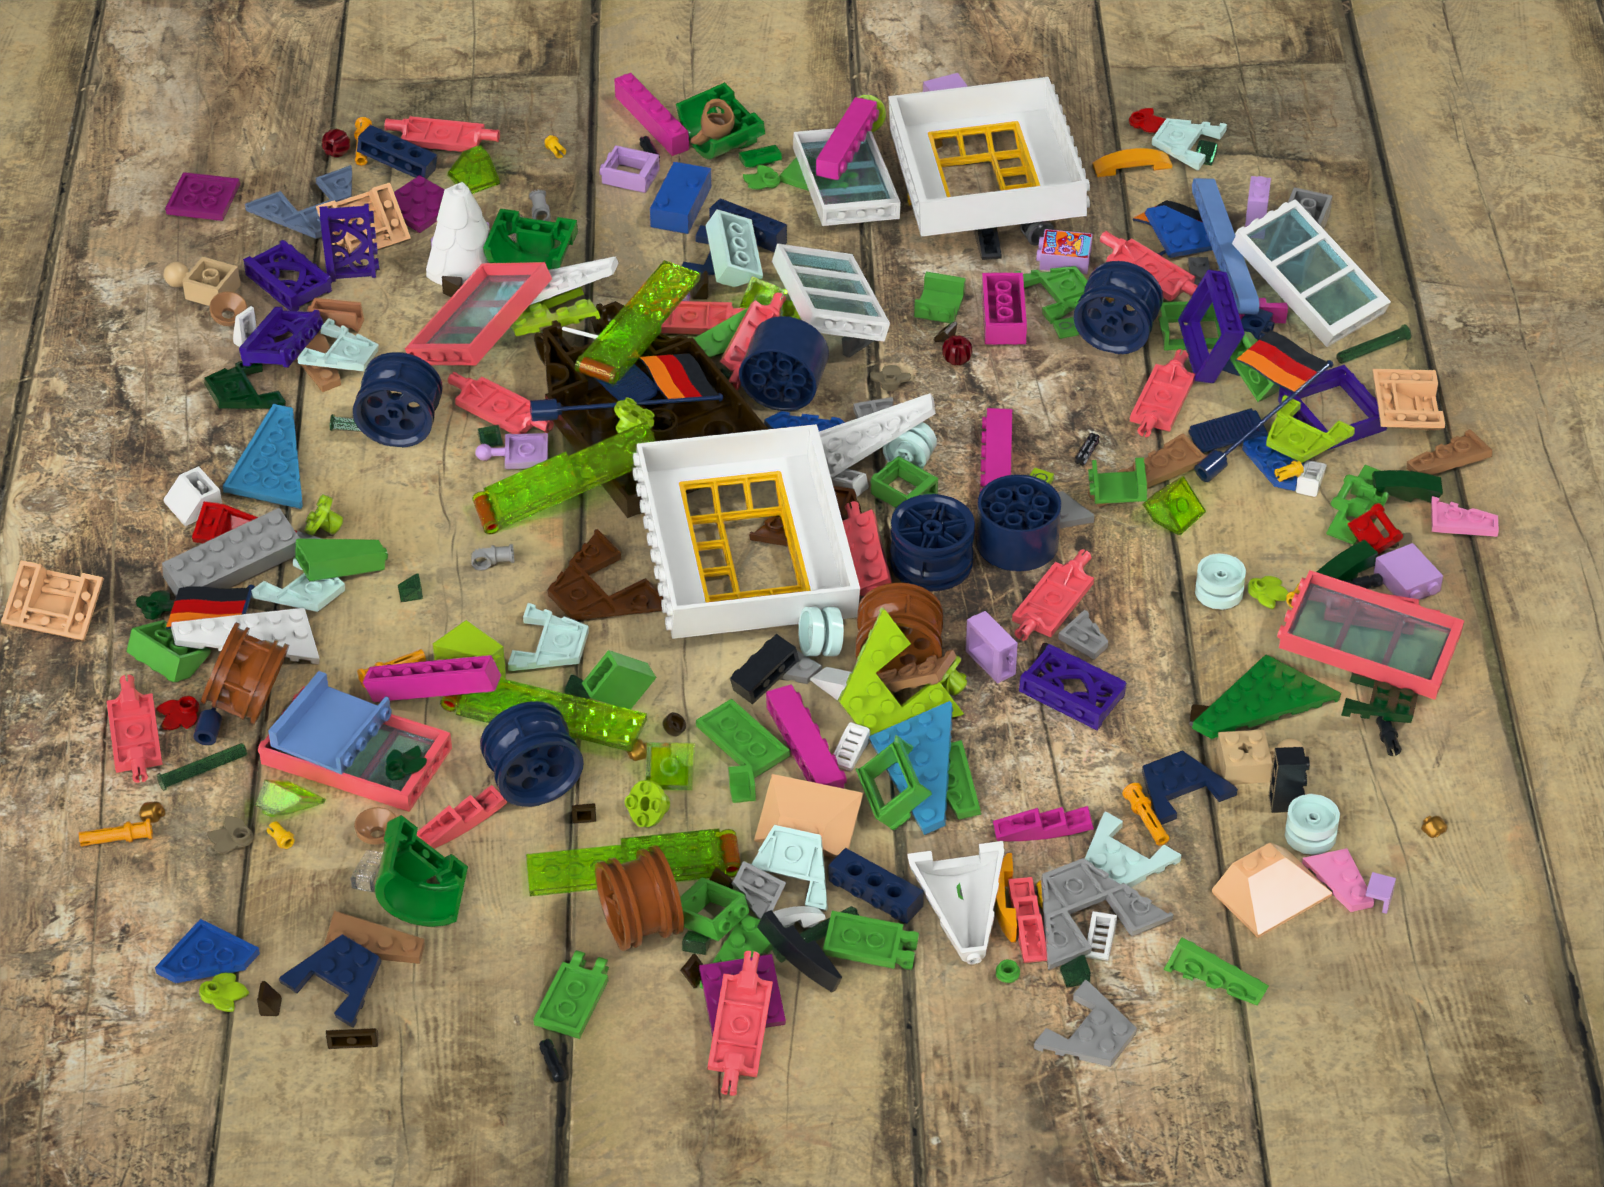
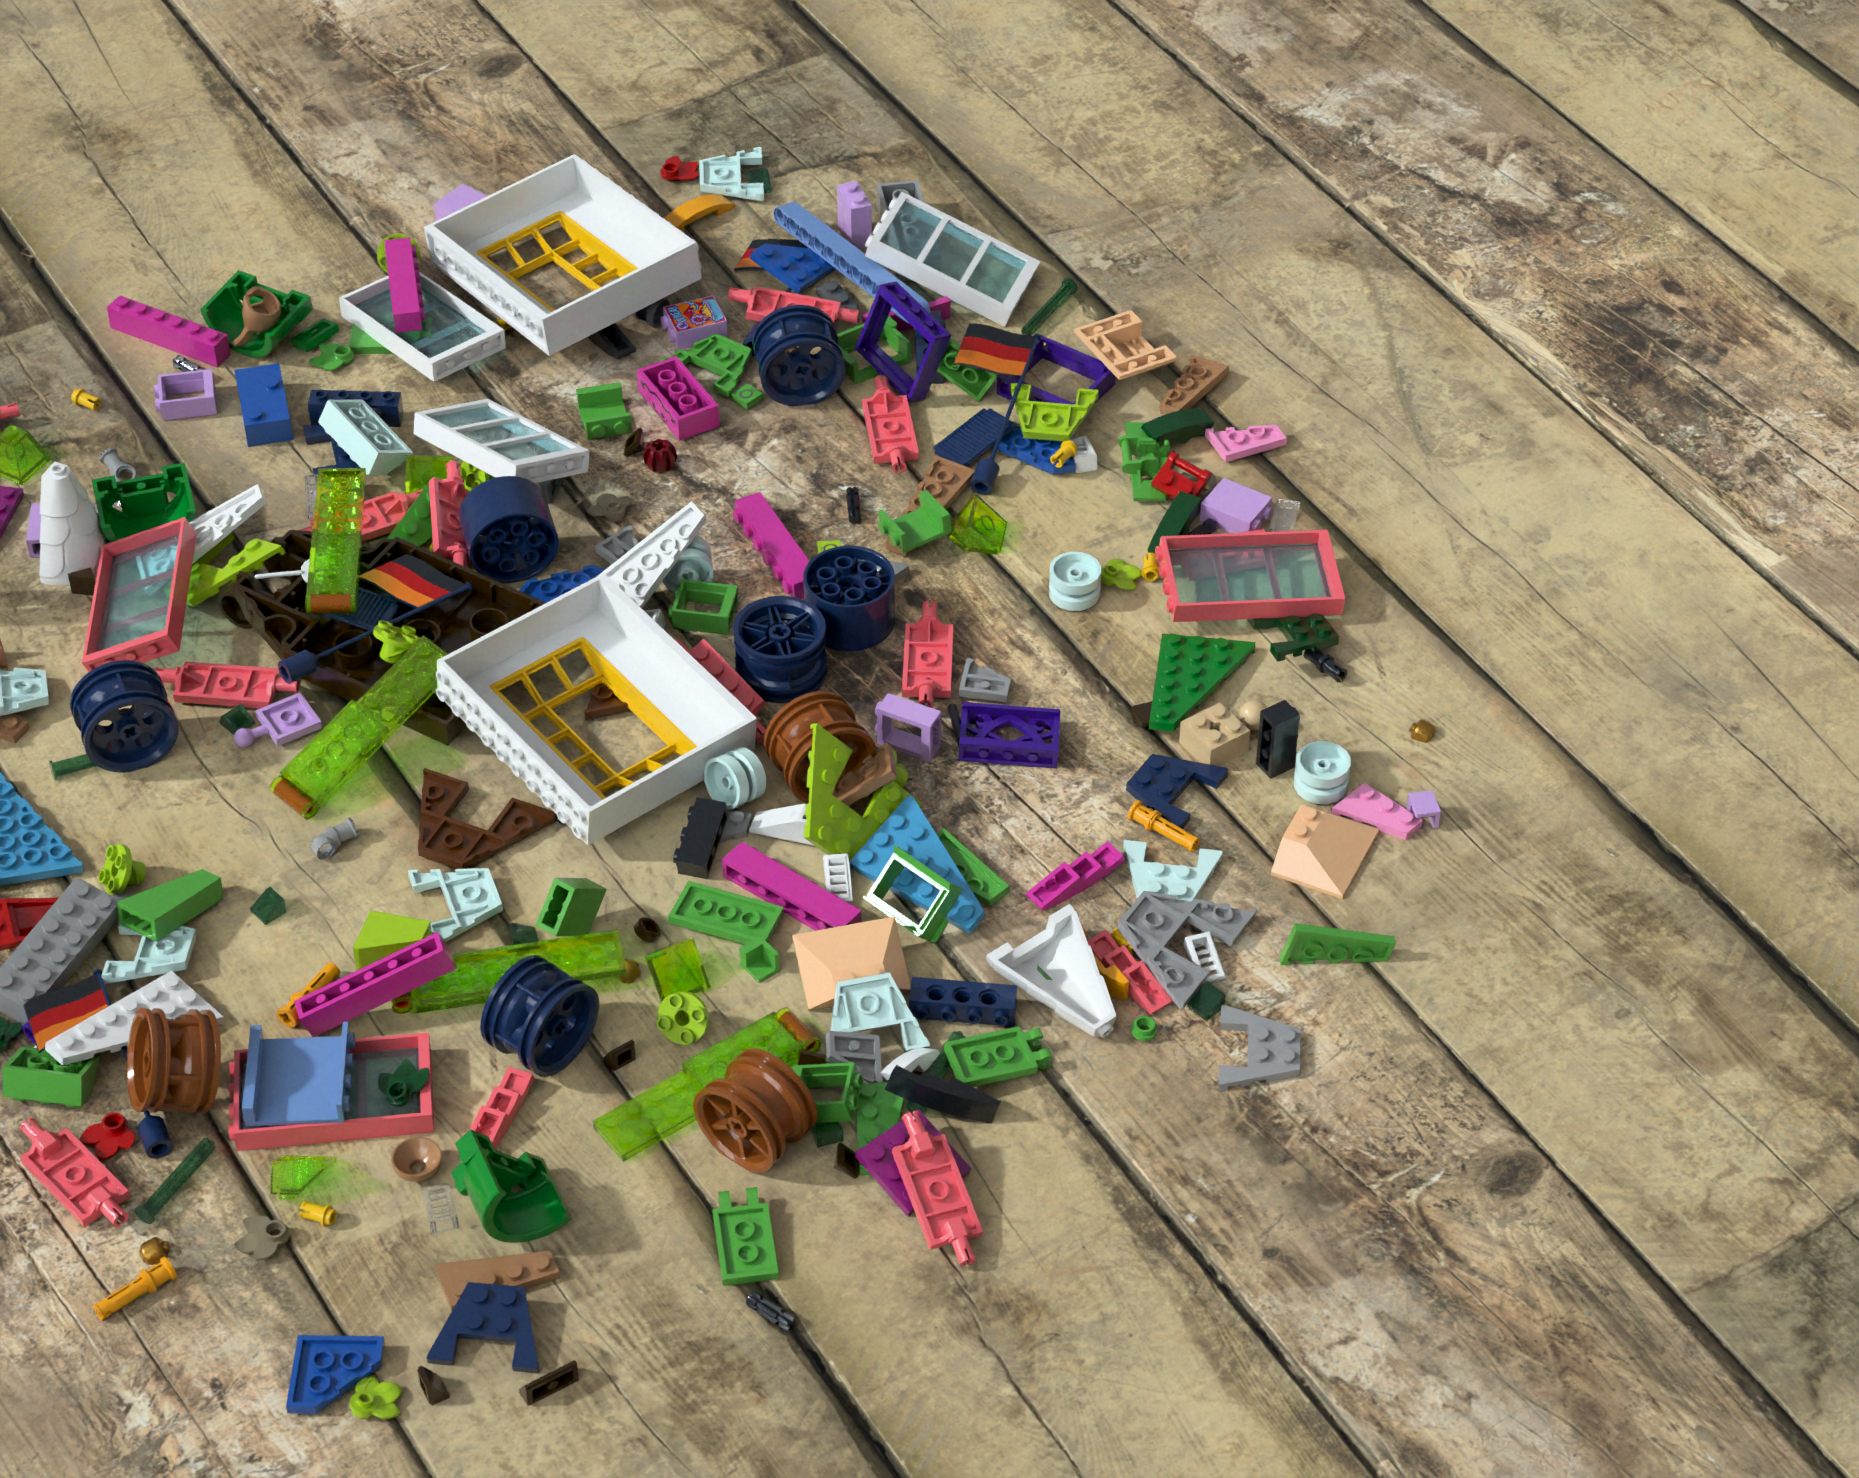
camera: 30 degrees left, 0 degrees up
(1447, 597) = (1284, 515): none -> clear plate

